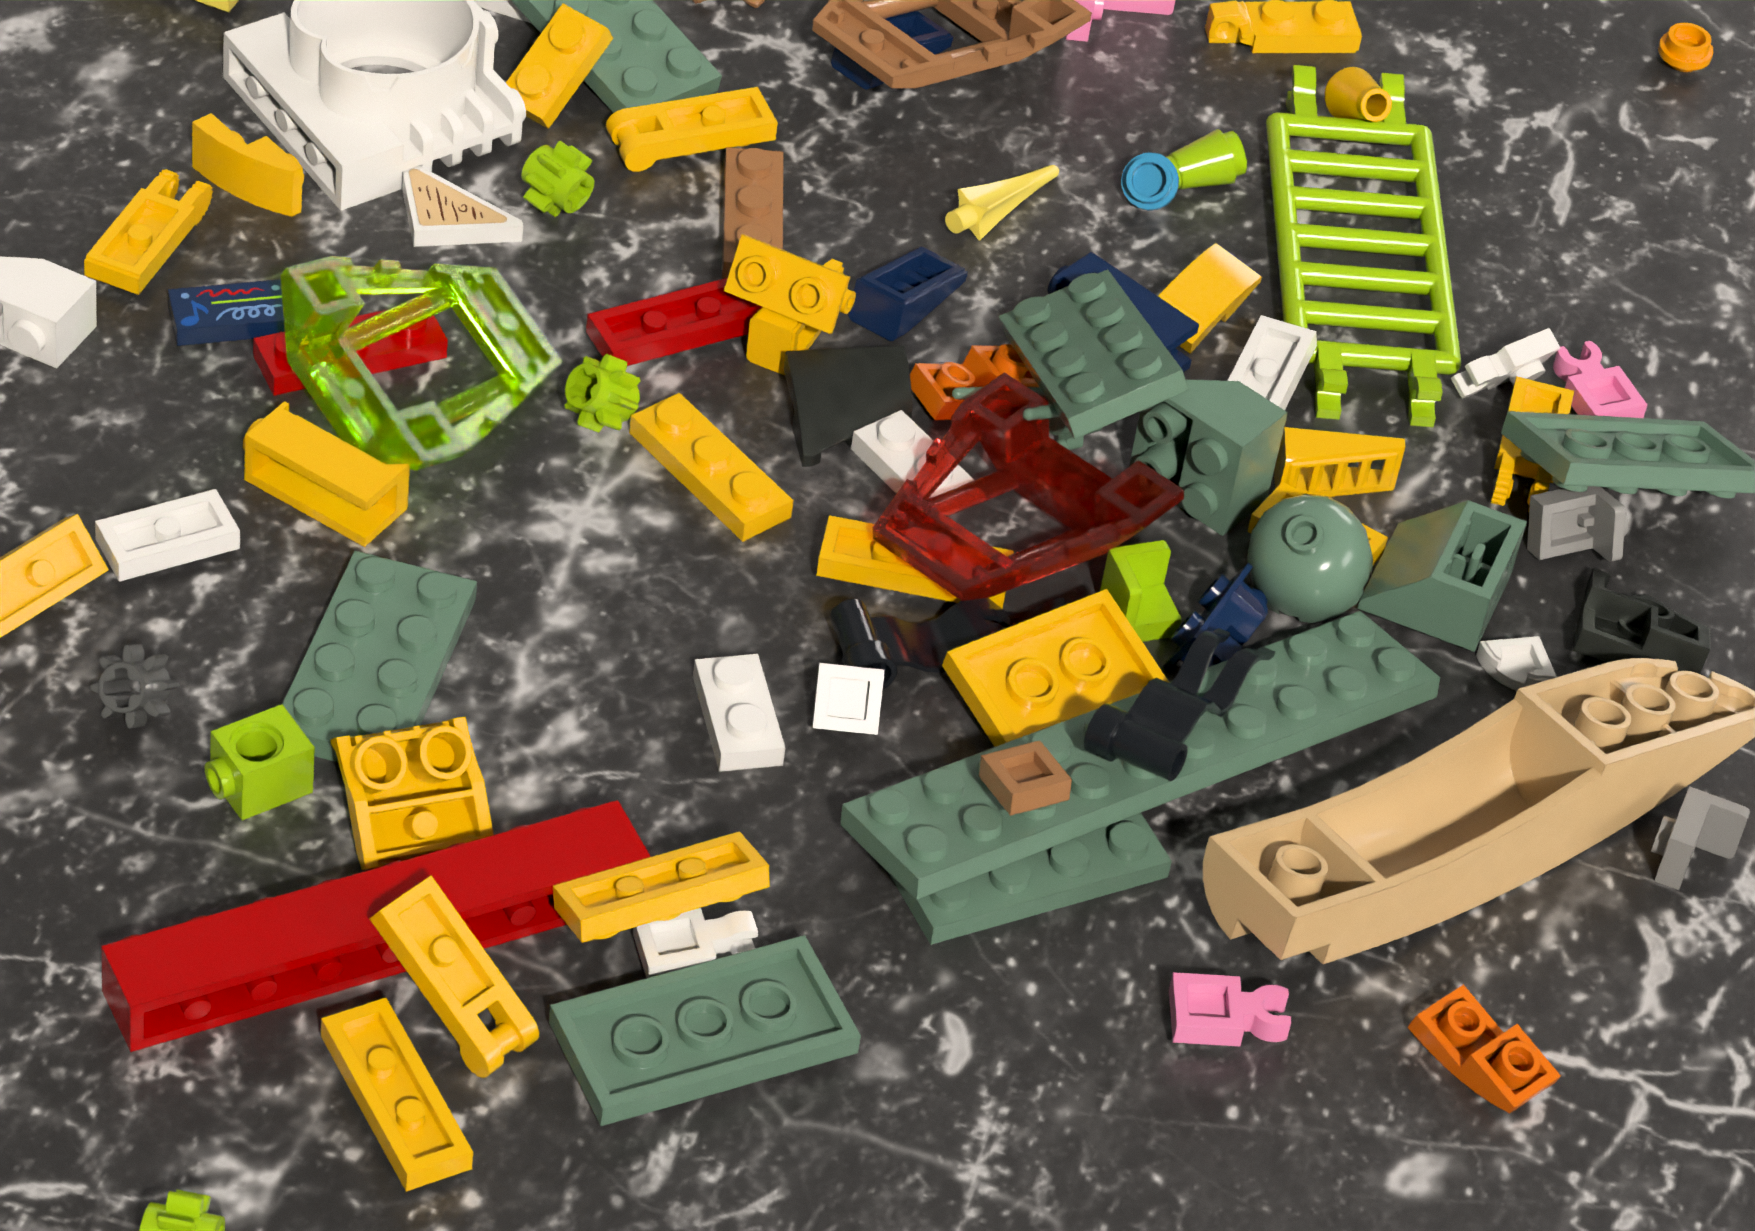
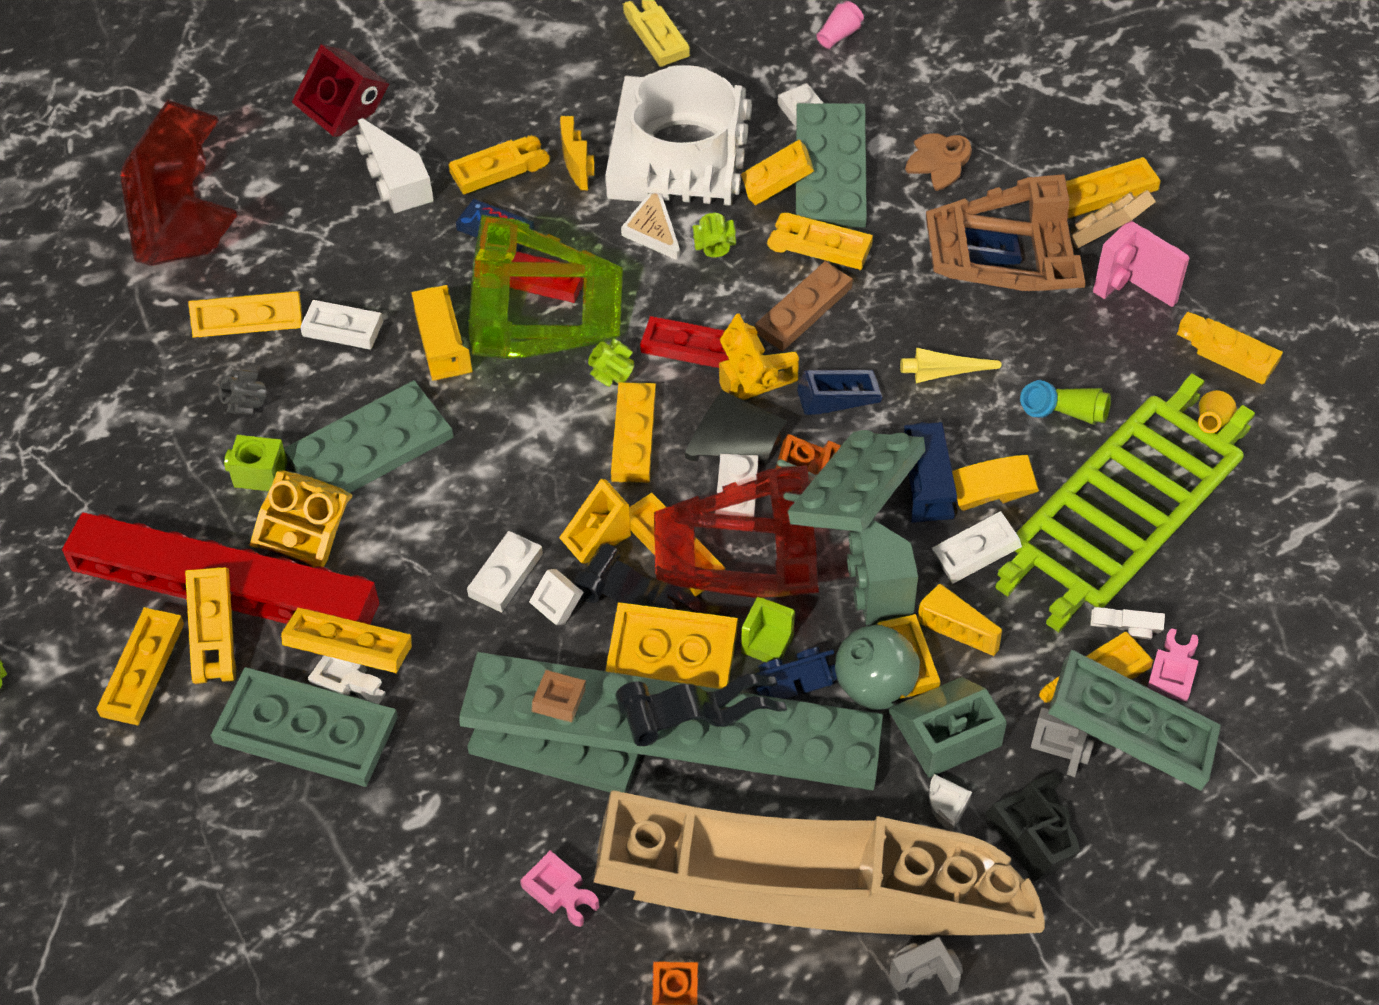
camera: 50 degrees right, 10 degrees up
(804, 582) = (599, 520): none -> yellow slope

